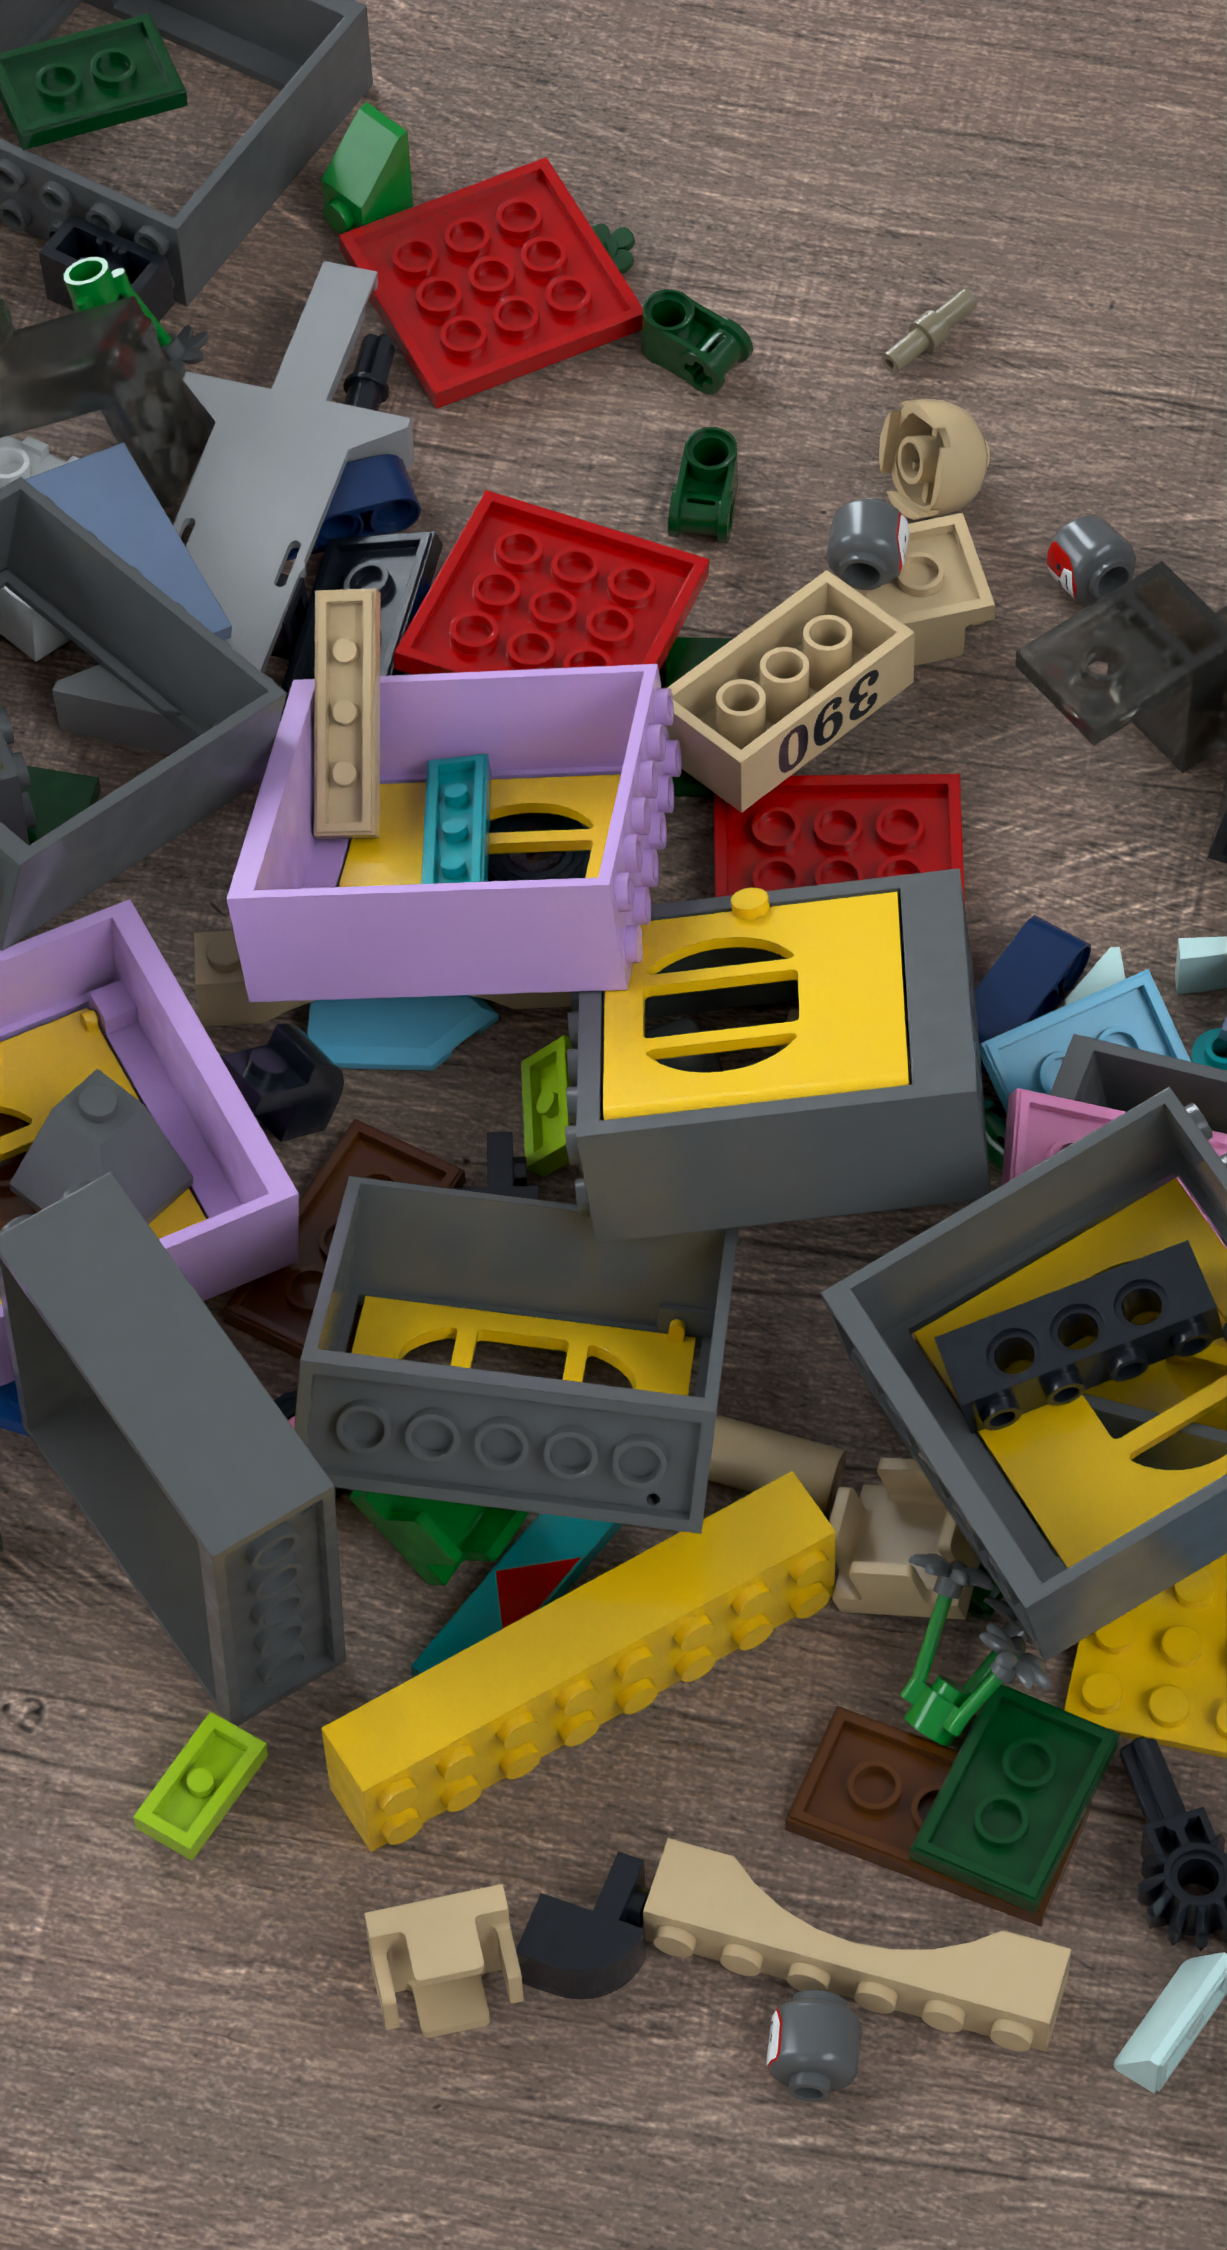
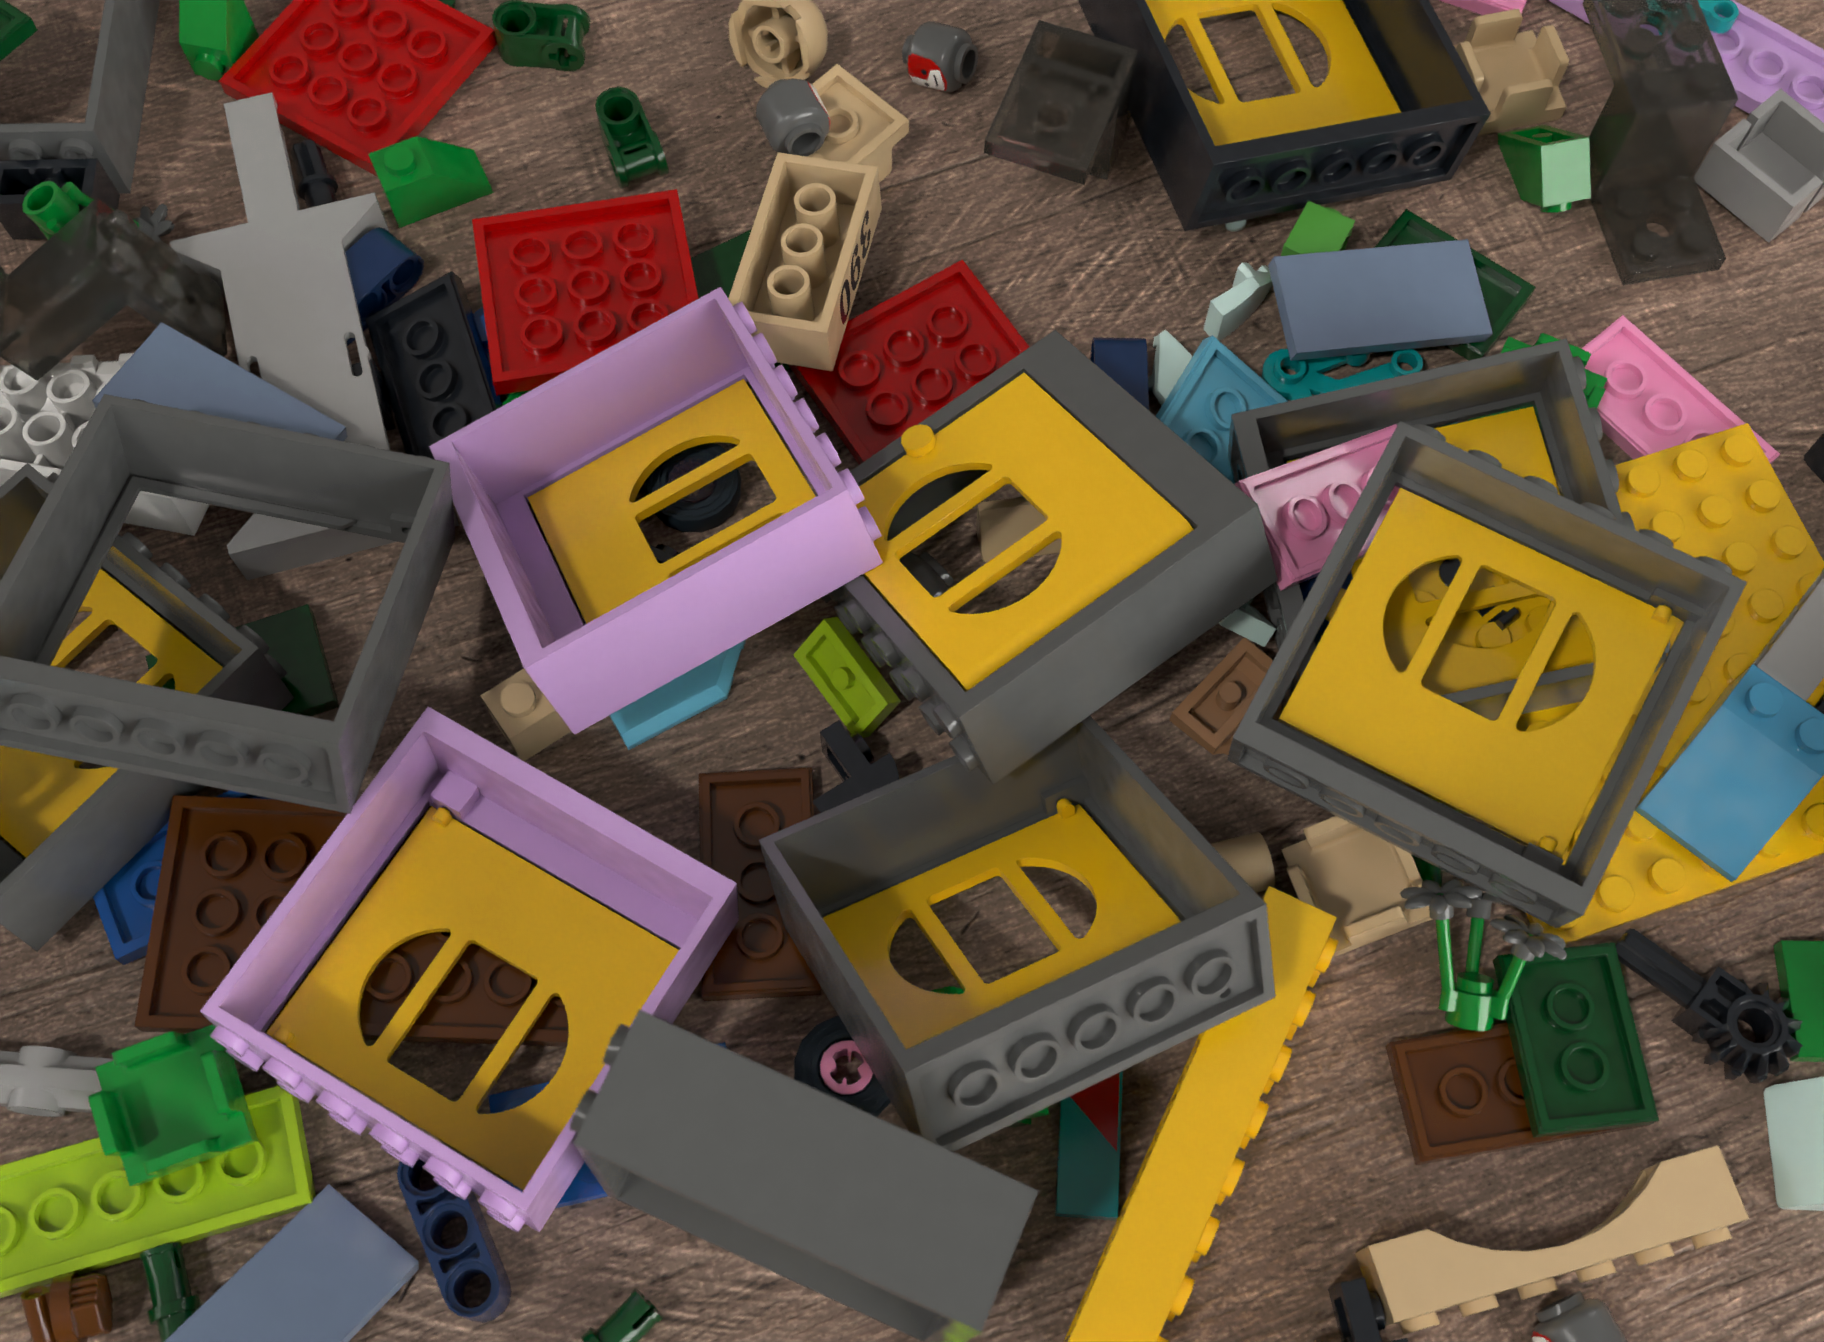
camera: 35 degrees left, 10 degrees up
(96, 1133) = (539, 944): dark grey slope -> none
(288, 1083) = (637, 778): black brick -> none
(347, 714) = (492, 450): tan tile -> none
(457, 820) = (639, 504): teal tile -> none
(479, 430) = (428, 177): none -> green slope
(1094, 1307) = (1475, 577): black brick -> none

